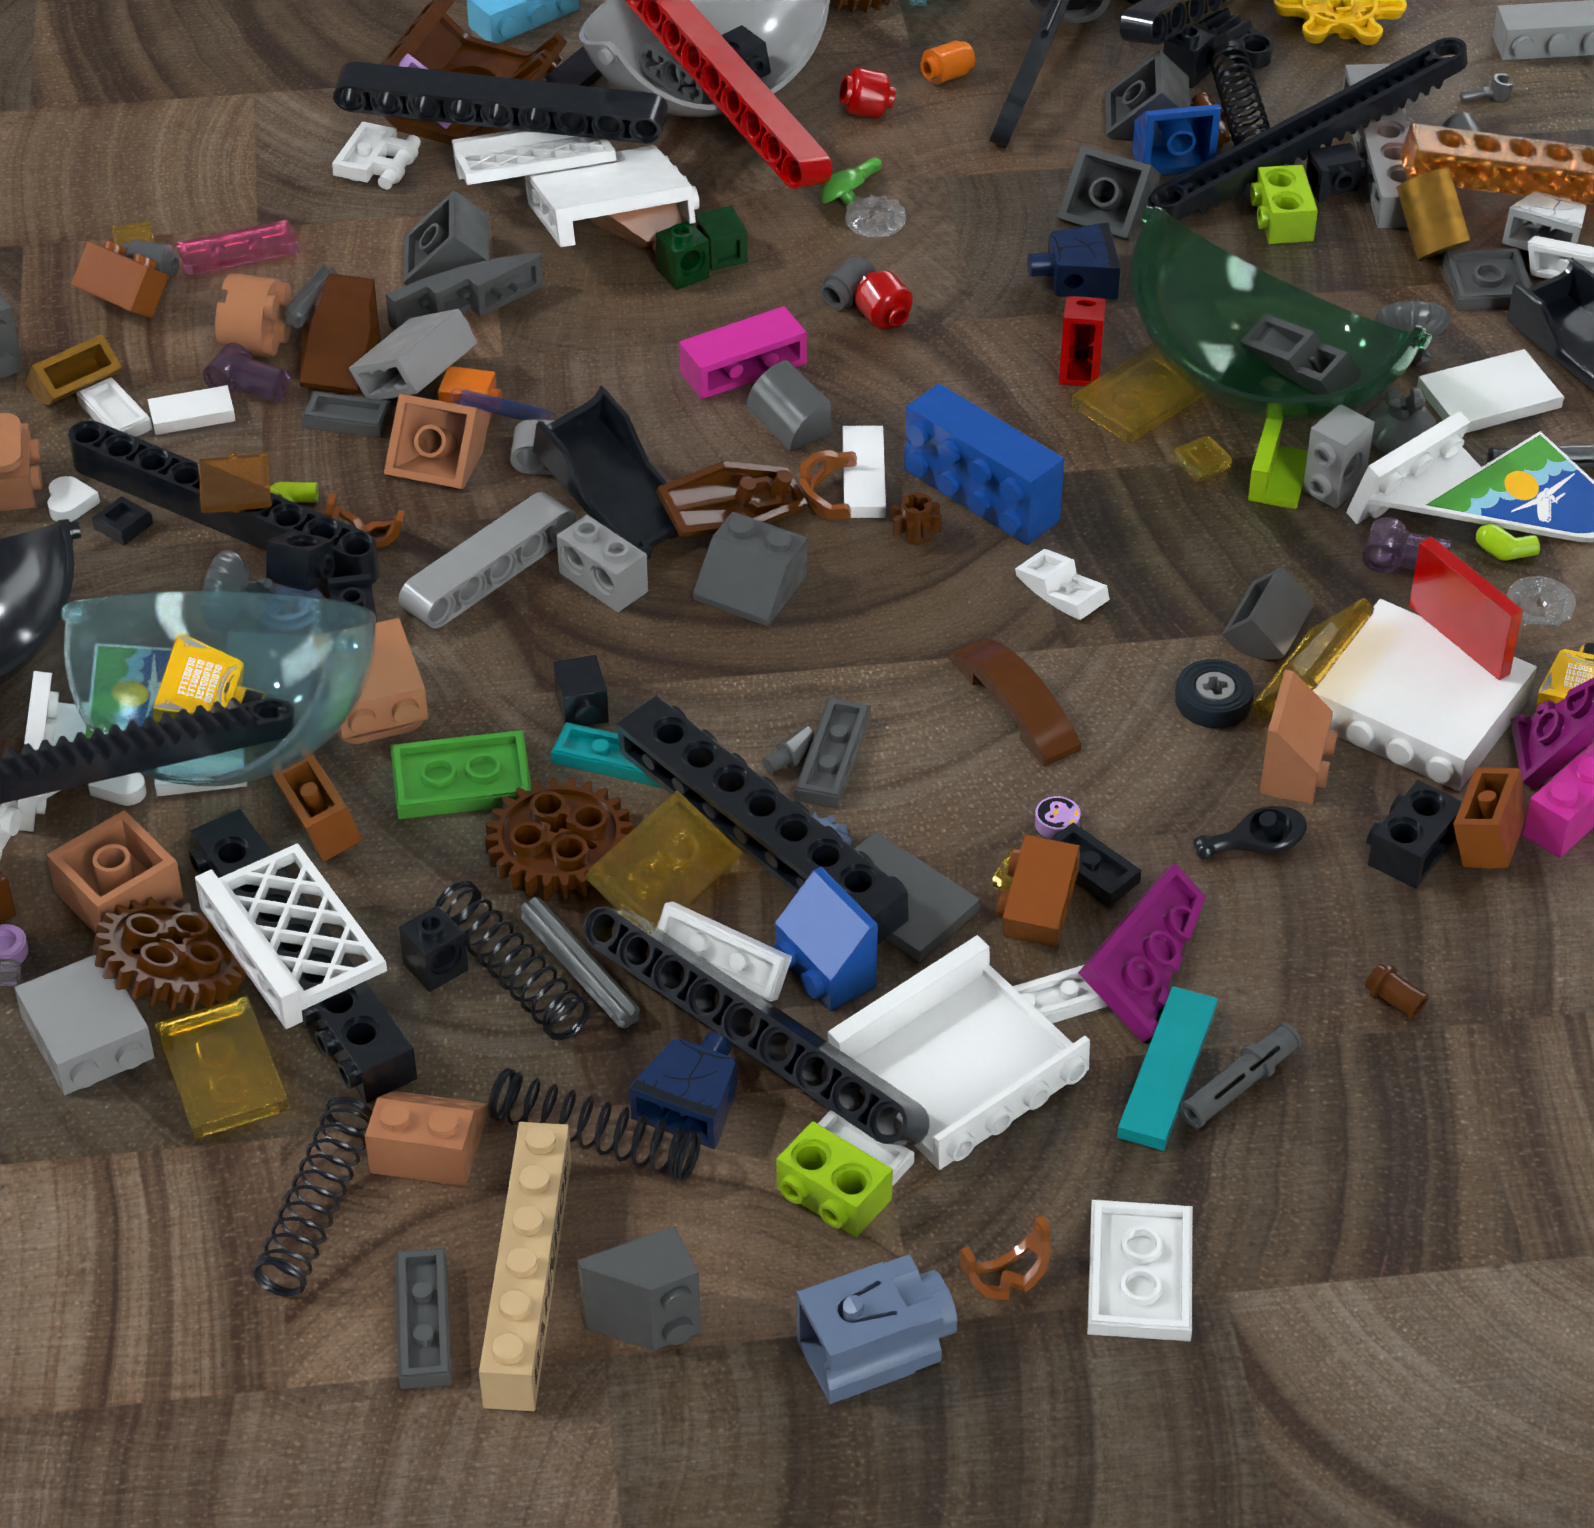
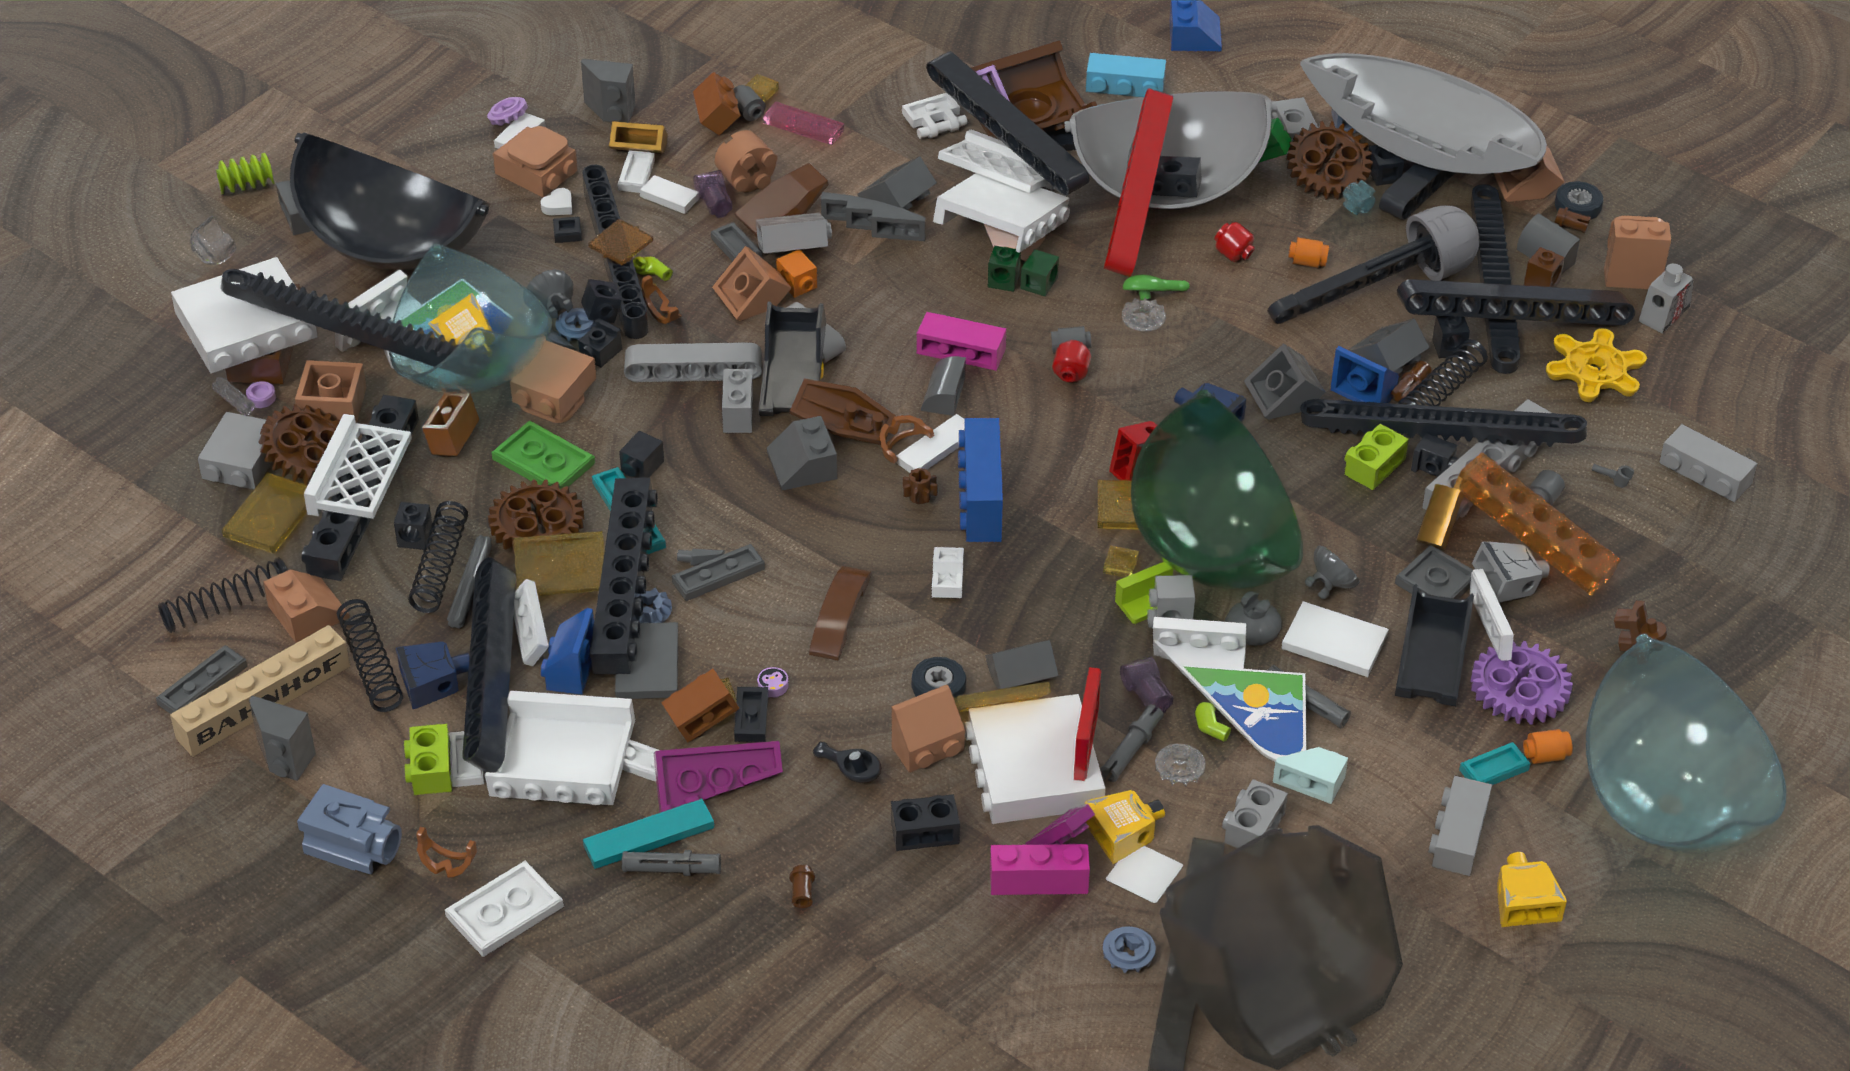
camera: 45 degrees right, 0 degrees up
(300, 306) = (772, 173): dark grey axle -> none
(503, 401) = (790, 282): blue piece -> none
(1300, 355) = (1237, 535): dark grey slope -> none
(1491, 818) = (964, 841): dark orange brick -> none

